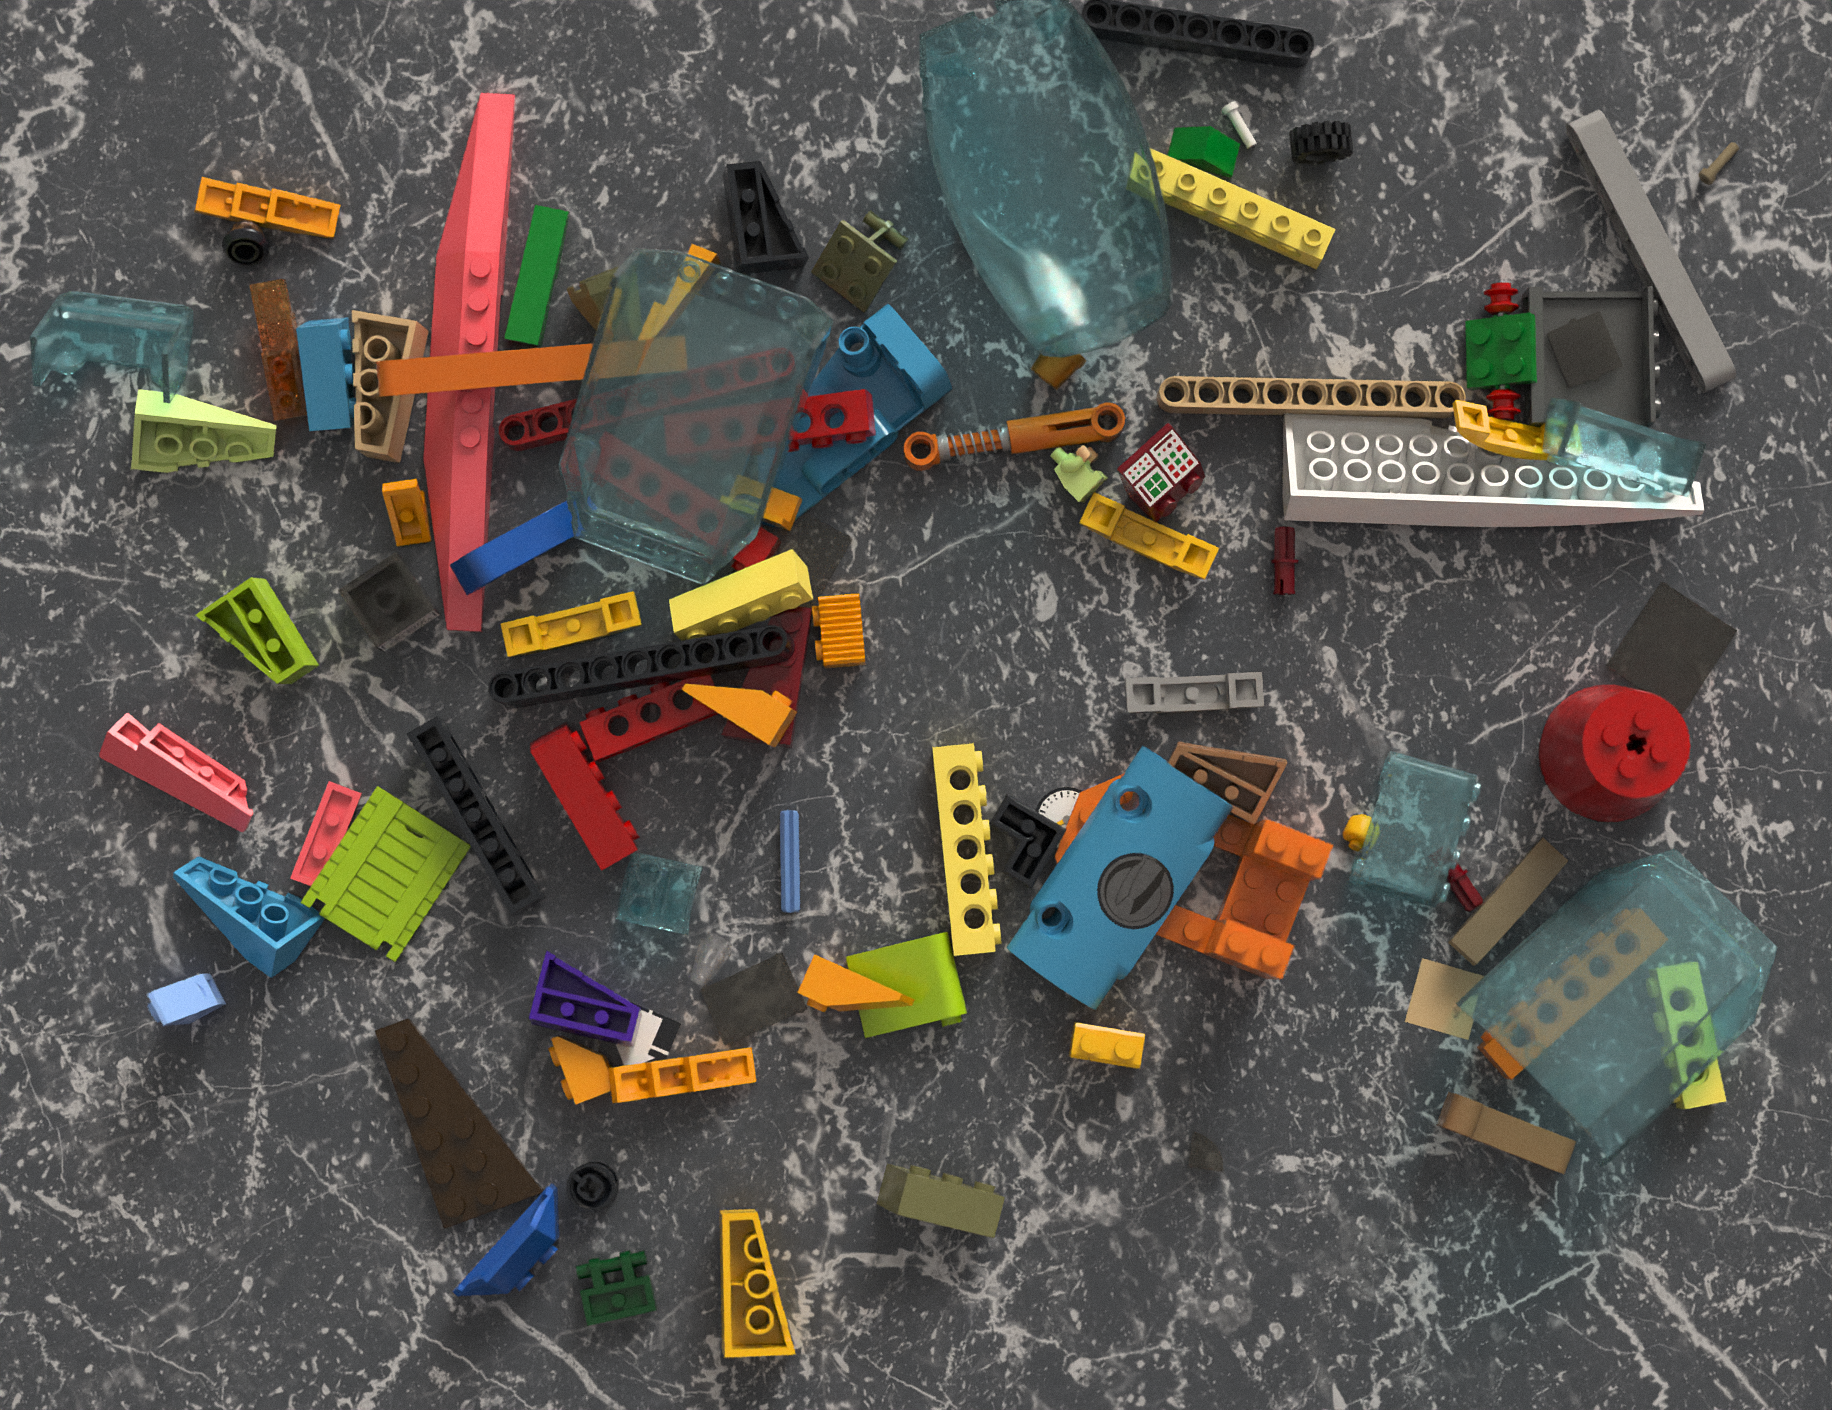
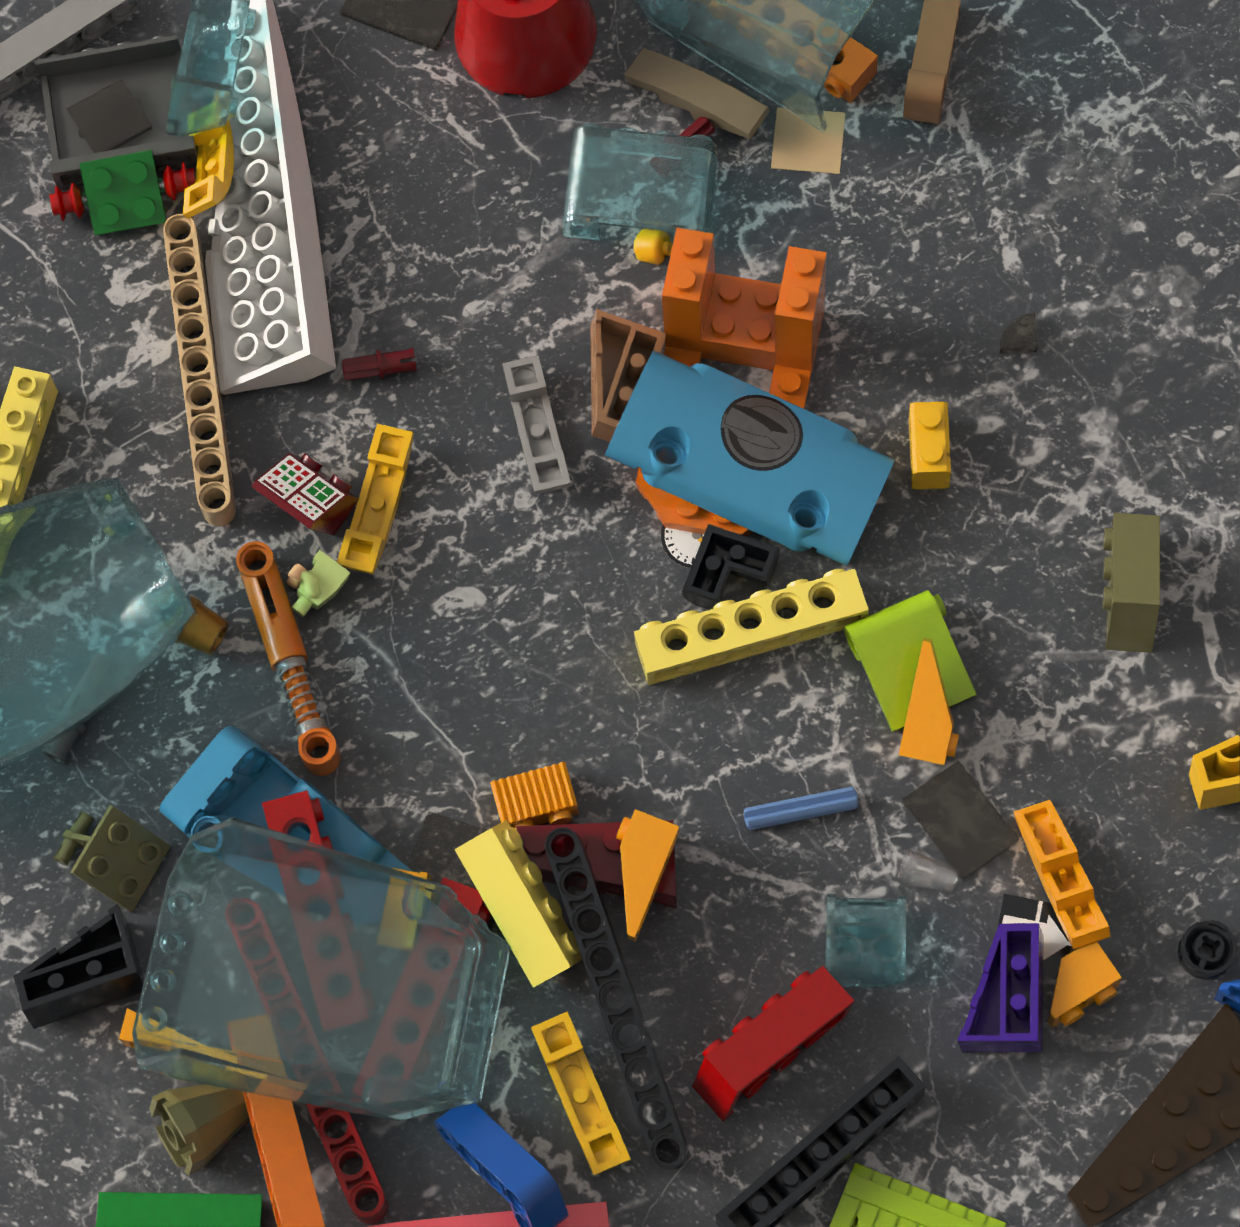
camera: 95 degrees left, 15 degrees down
(598, 721) = (687, 996): red brick -> none

